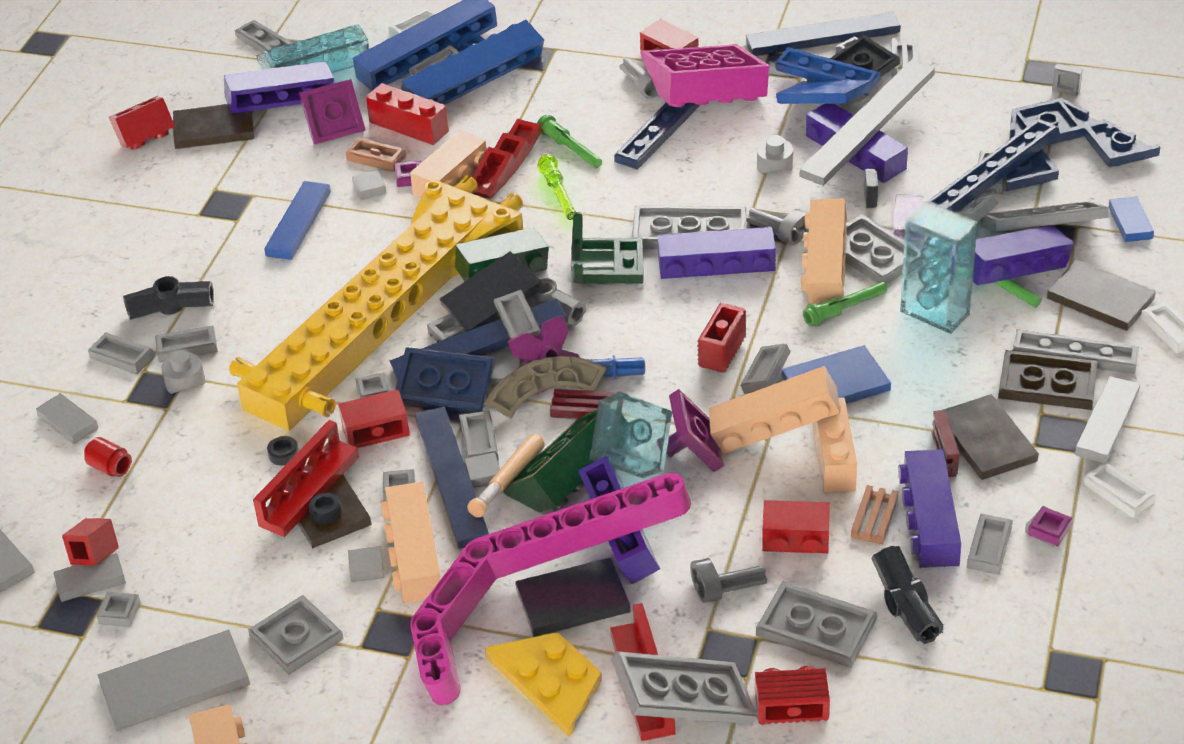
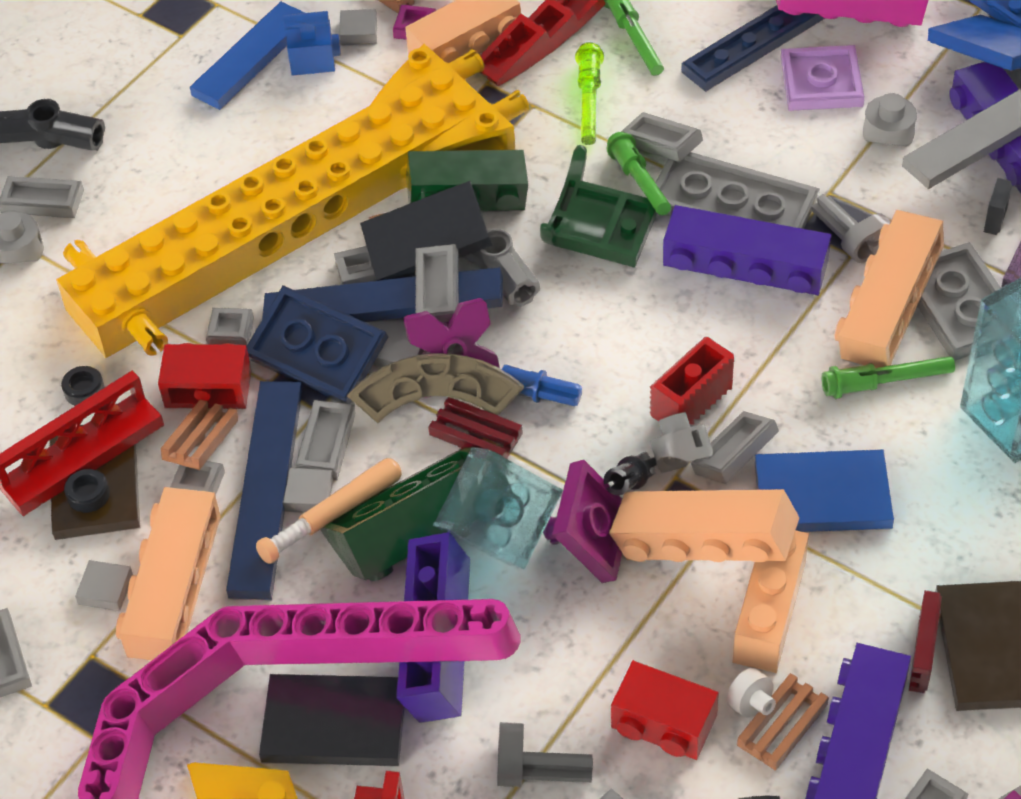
camera: 20 degrees right, 10 degrees up
(342, 199) = (311, 43): none -> blue brick
(388, 445) = (192, 434): none -> nougat tile
(600, 214) = (622, 148): none -> bright green pin
(623, 200) = (663, 136): none -> light grey tile
(706, 397) = (630, 473): none -> black axle
(714, 142) = (822, 78): none -> lavender tile
(730, 371) = (680, 443): none -> light grey piece
(848, 502) = (751, 693): none -> white tile

